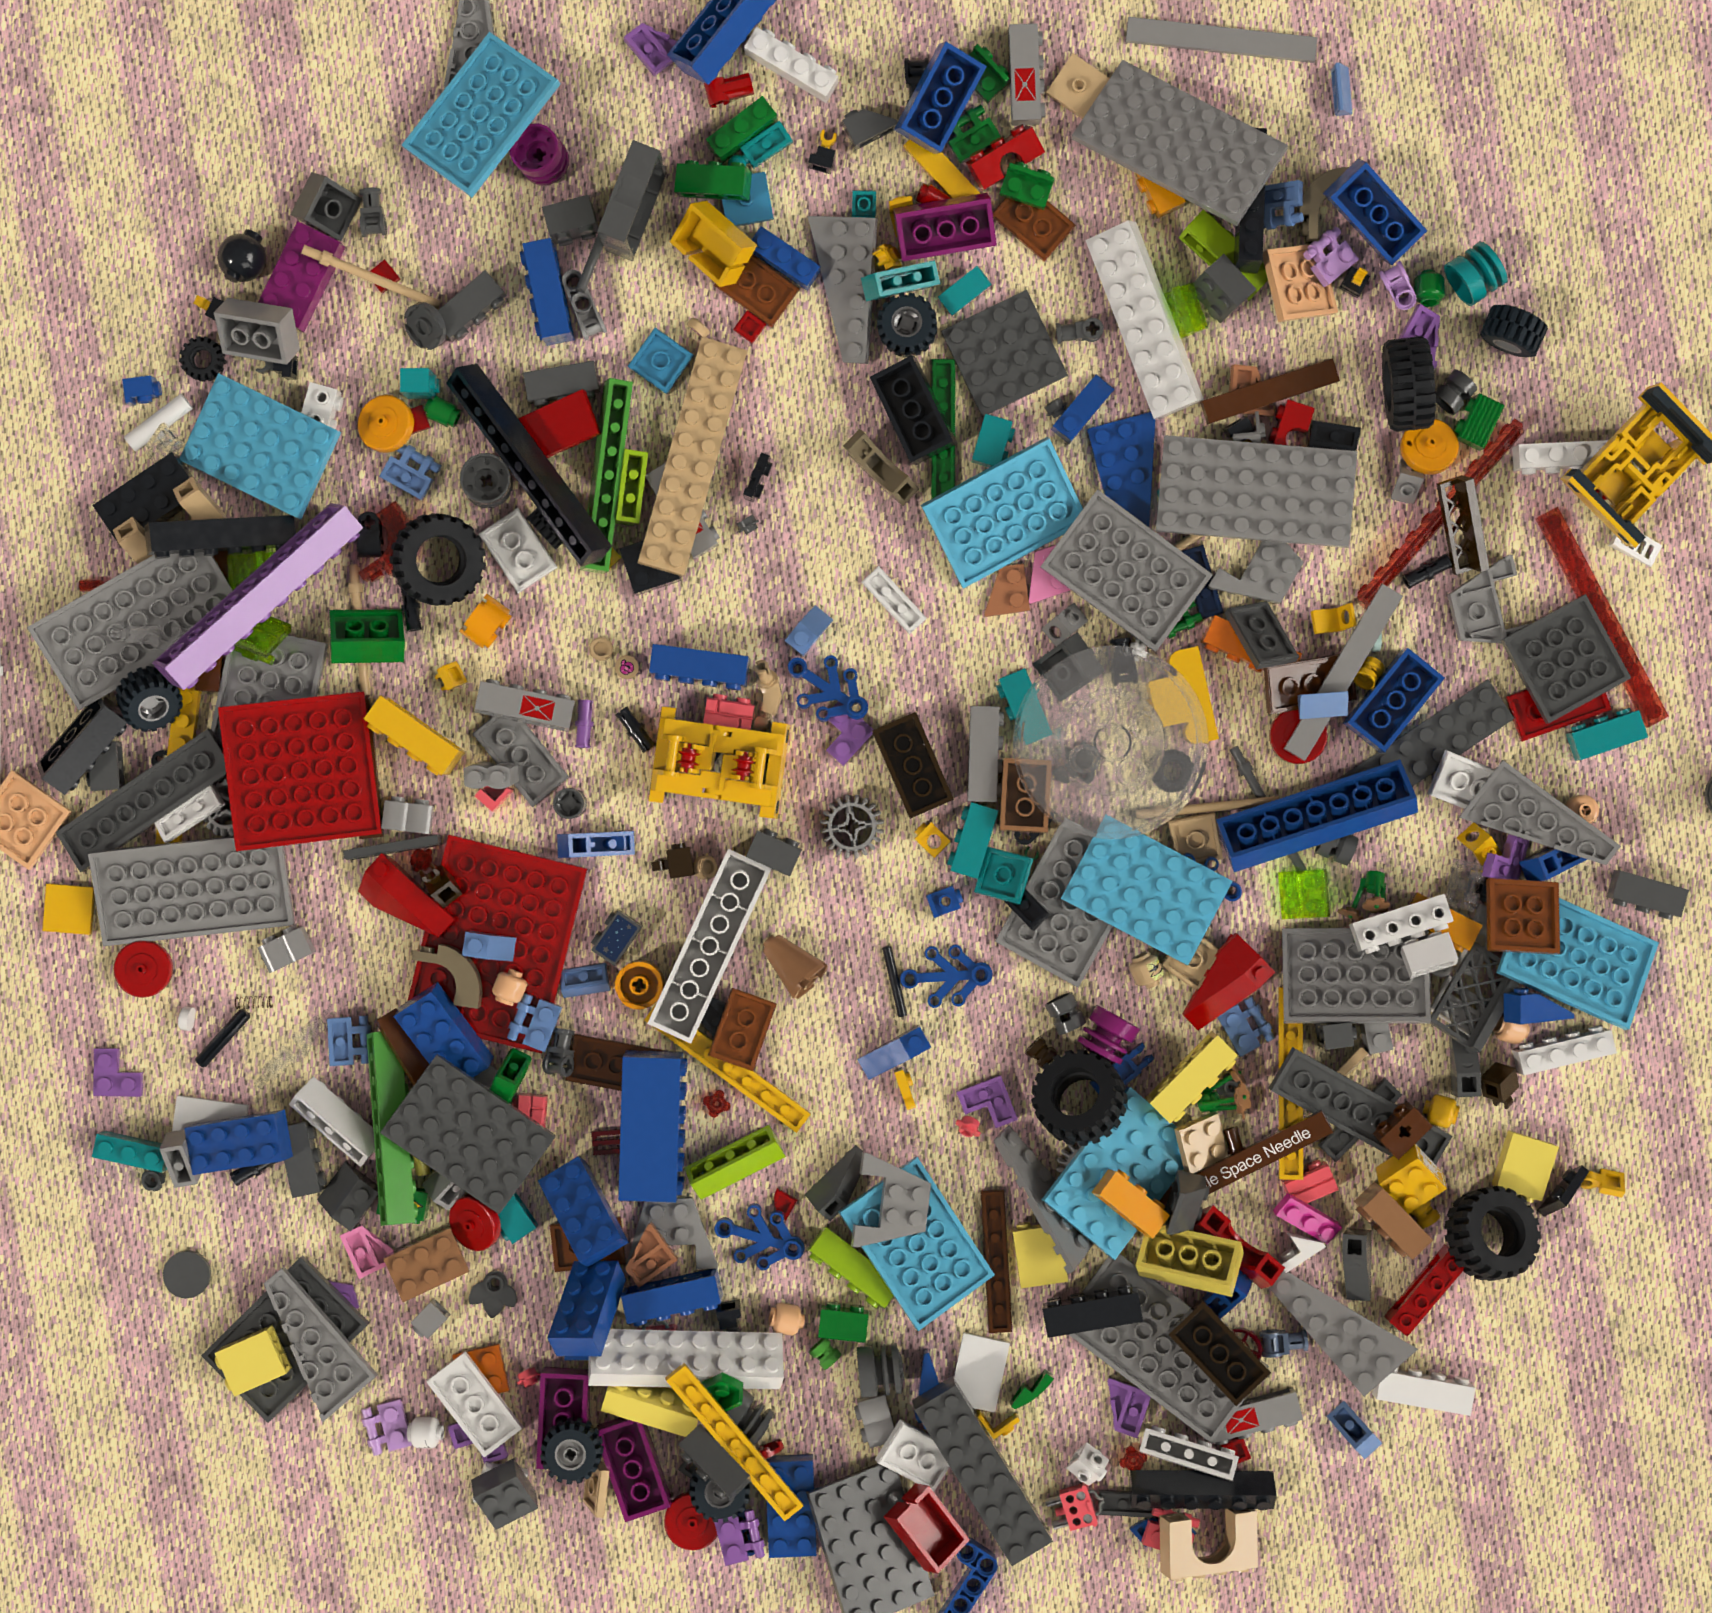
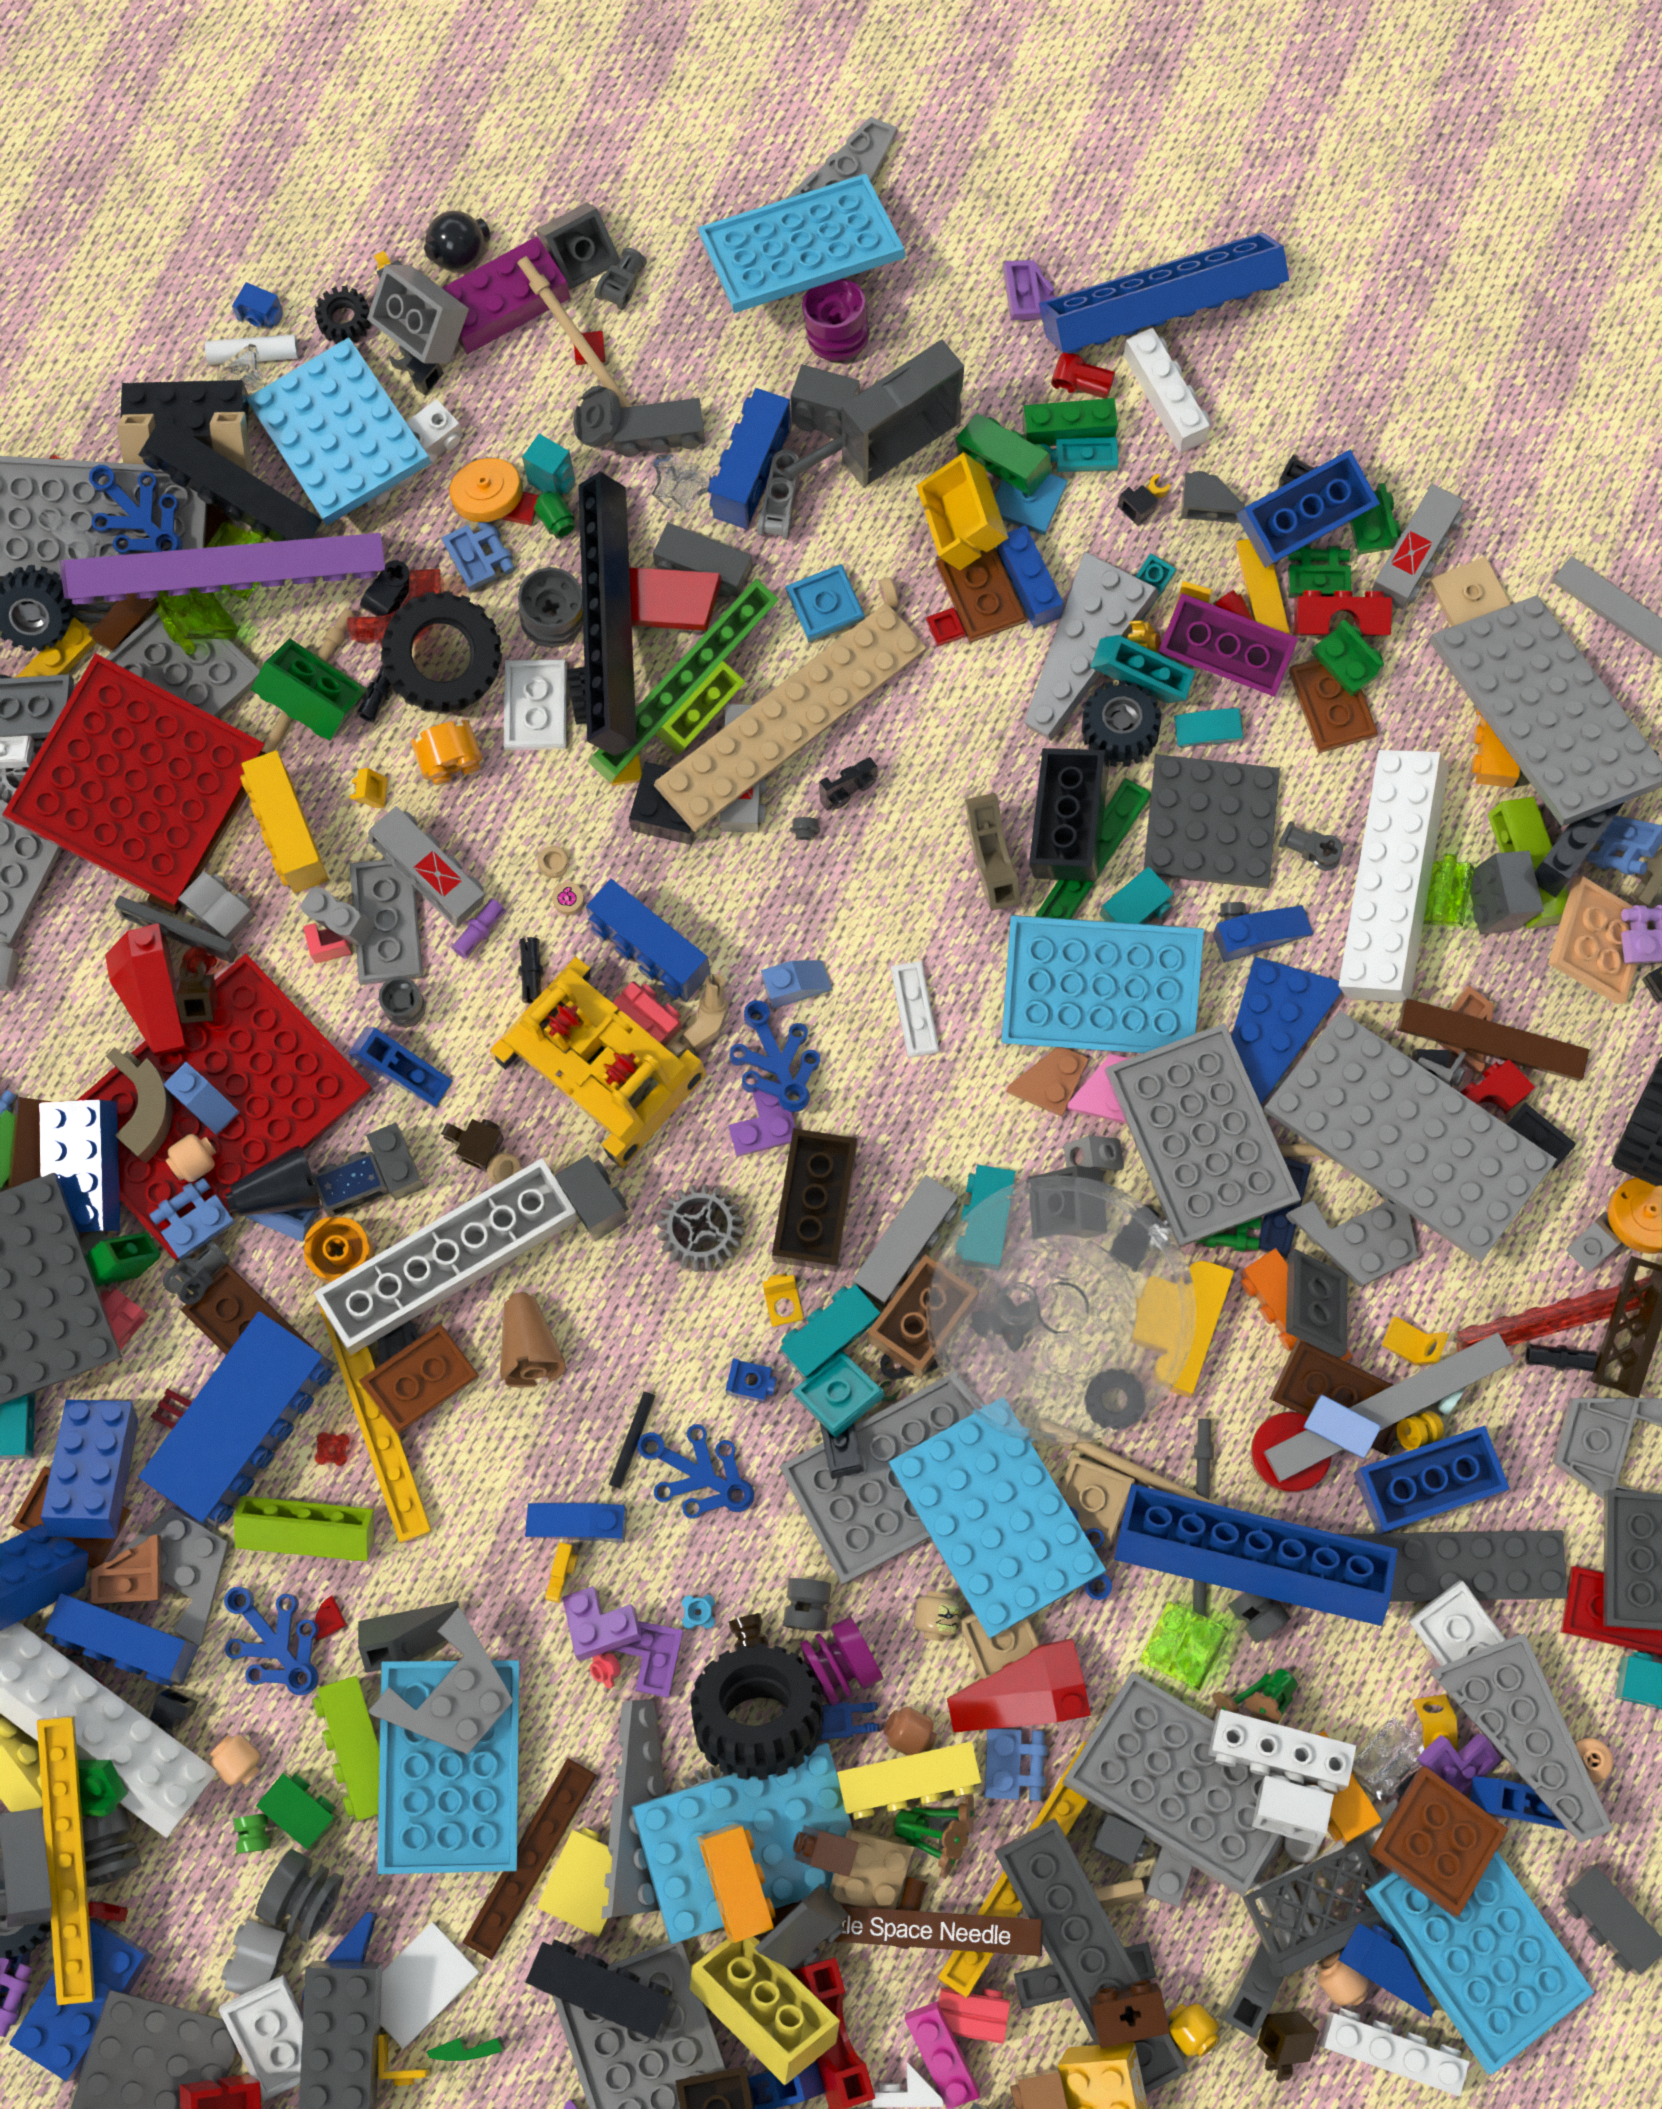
camera: 35 degrees right, 15 degrees down
(175, 594) = (140, 517): none -> blue plant
(512, 339) = (679, 482): none -> clear brick
(574, 971) = (275, 1187): none -> black cone
(635, 906) = (395, 1161): none -> dark grey brick
(948, 1110) = (598, 1632): none -> medium lavender plate
(1000, 1065) = (691, 1605): none -> medium azure plate
(1171, 1152) = (825, 1850): none -> reddish brown brick
(1173, 1048) = (909, 1731): none -> nougat head

